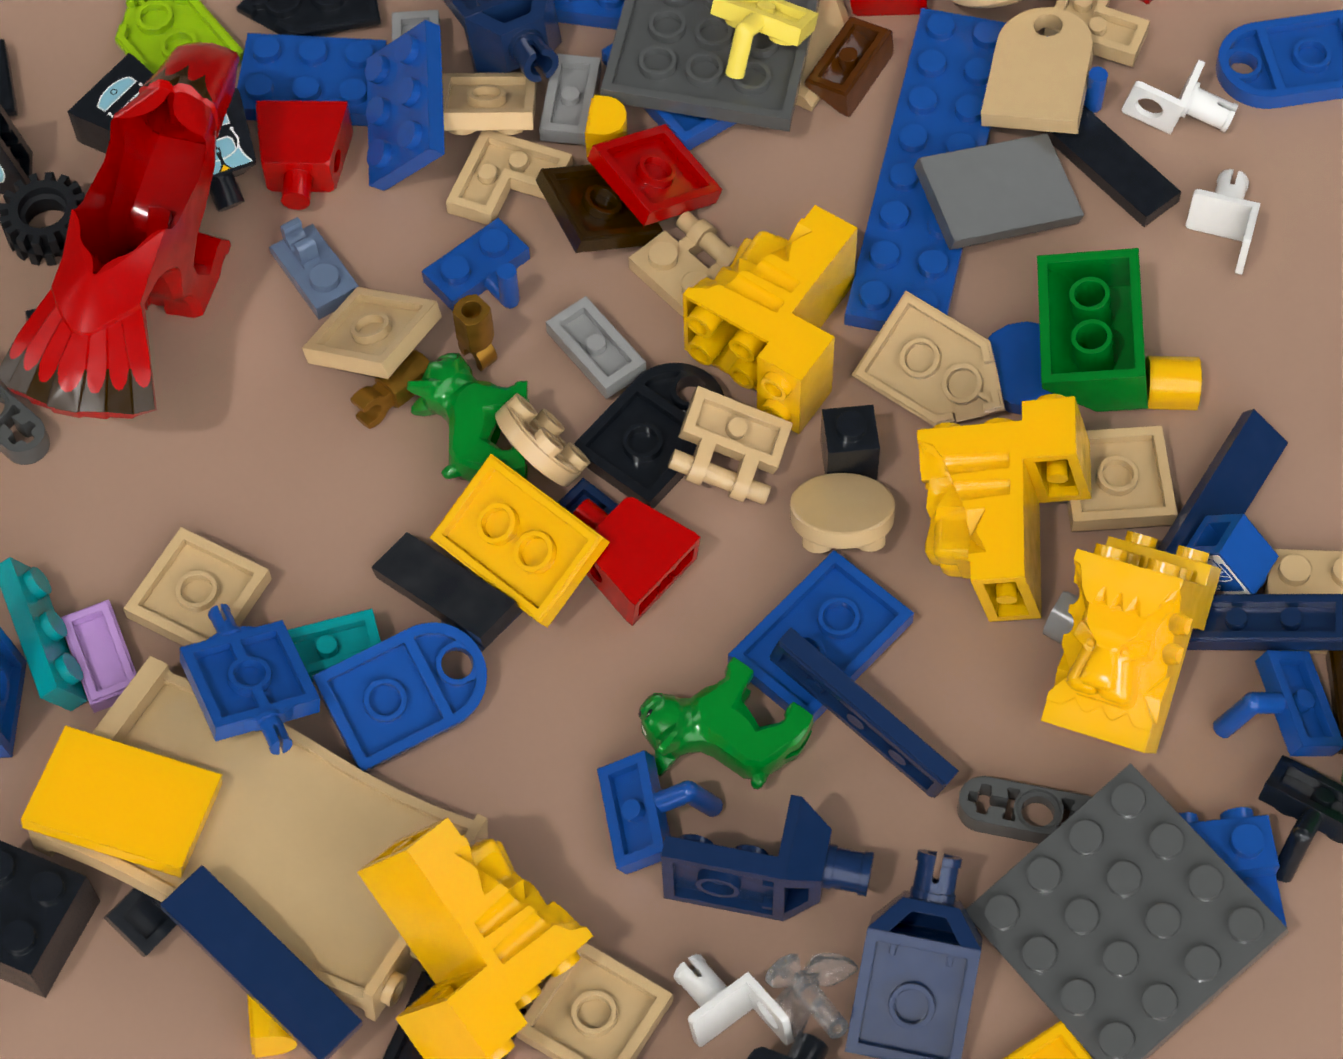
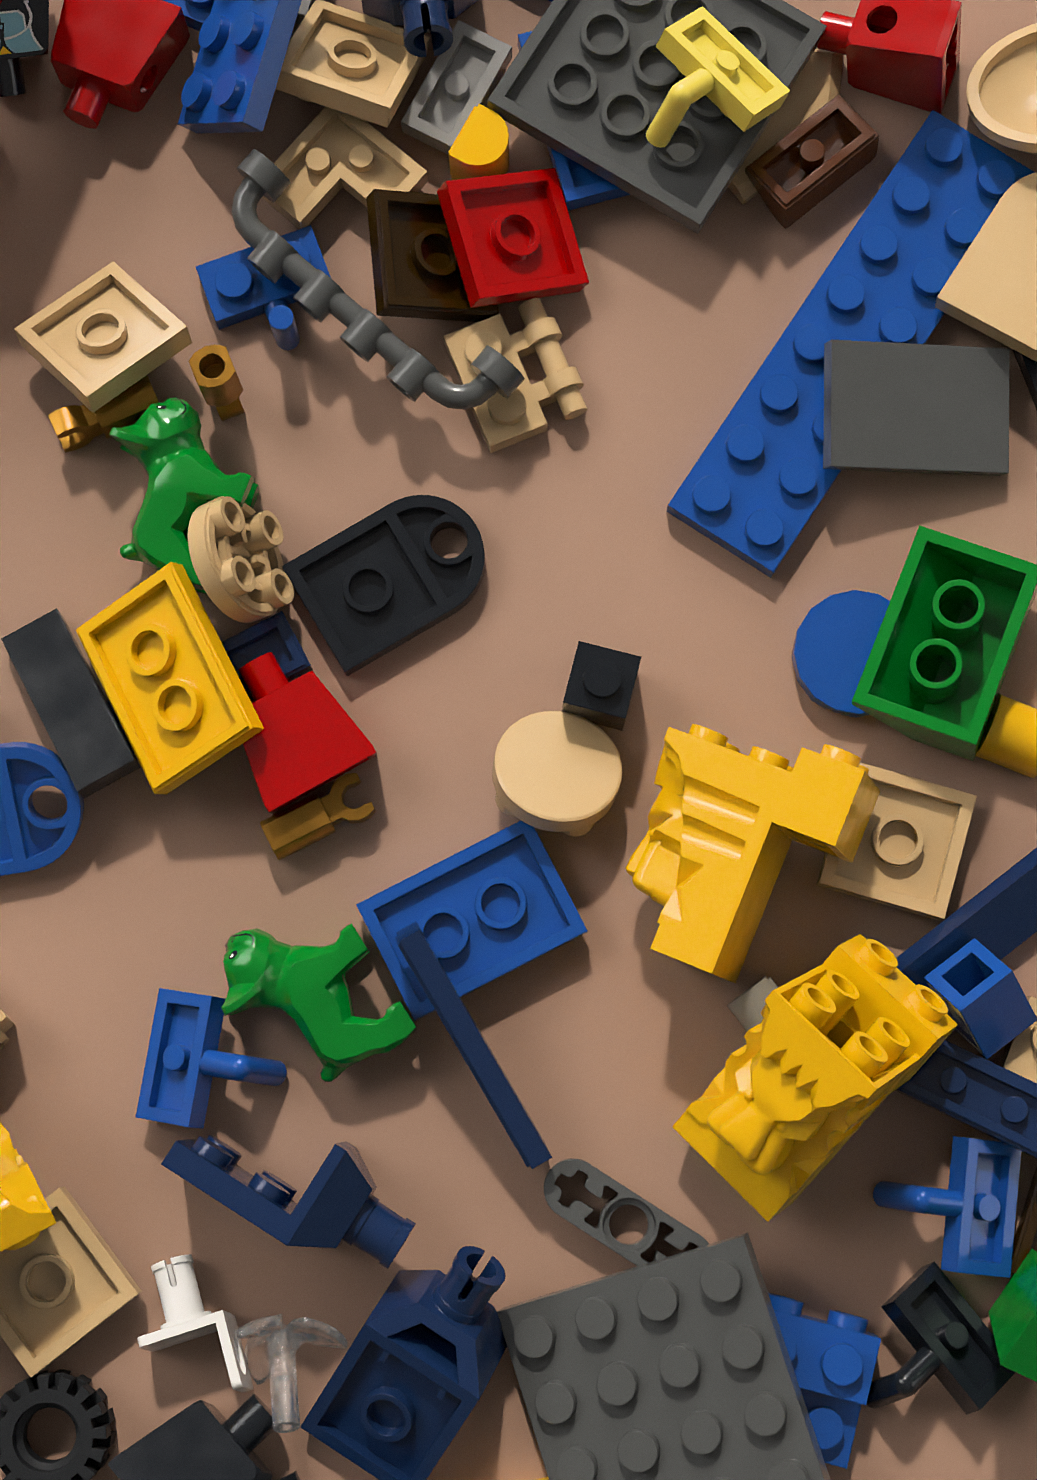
camera: 20 degrees right, 20 degrees up
(312, 267) = (74, 214): sand blue plate -> none
(573, 263) = (364, 331): none -> dark grey bar
(596, 347) = (360, 444): light grey plate -> none
(668, 611) = (313, 818): none -> pearl gold bar
(736, 432) = (473, 621): tan plate -> none
(767, 314) = (571, 476): yellow brick -> none
(932, 365) = (740, 615): tan tile -> none

